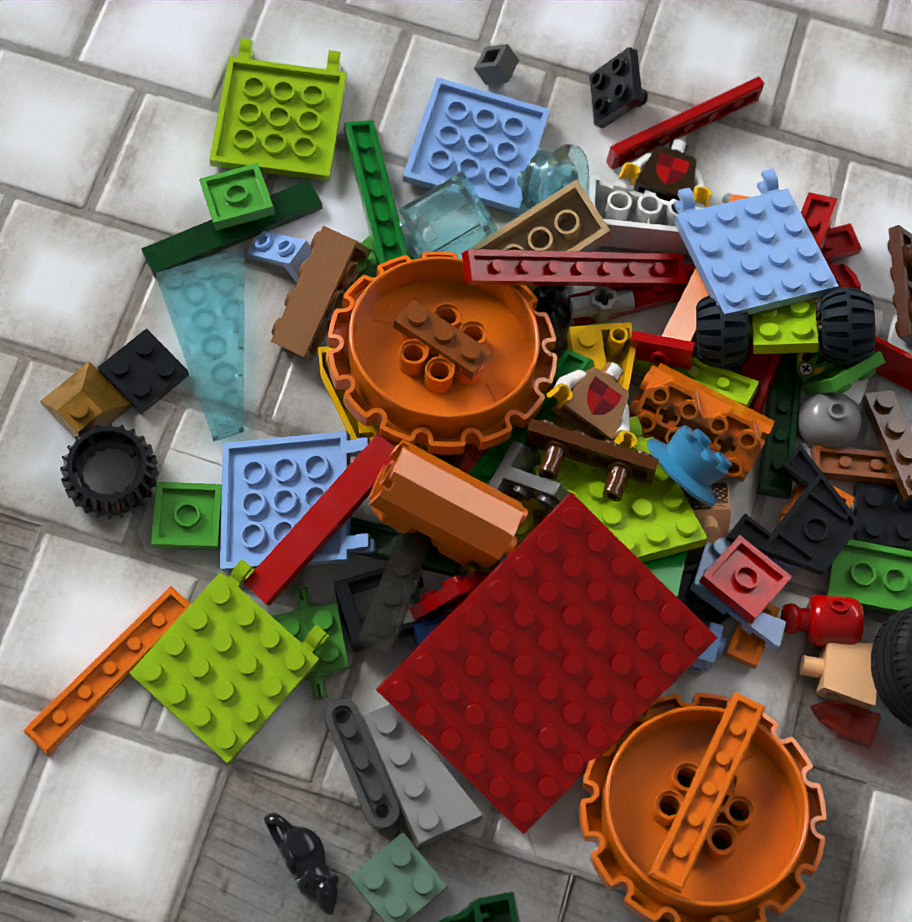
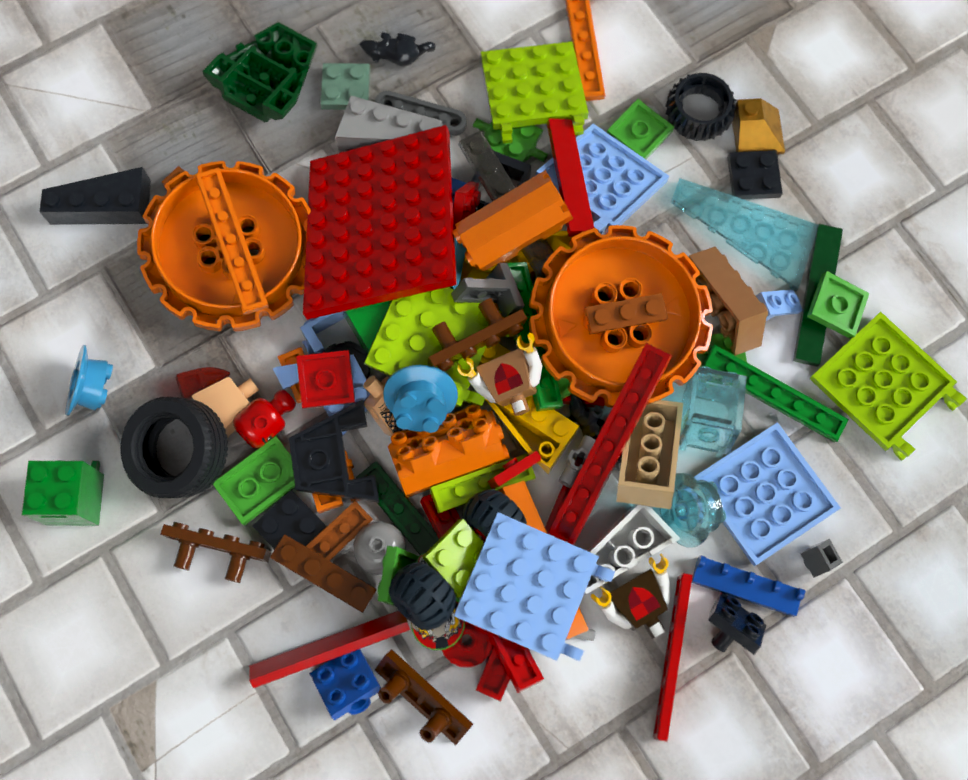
camera: 140 degrees right, 5 degrees up
(570, 107) = (747, 586): none -> blue hinge

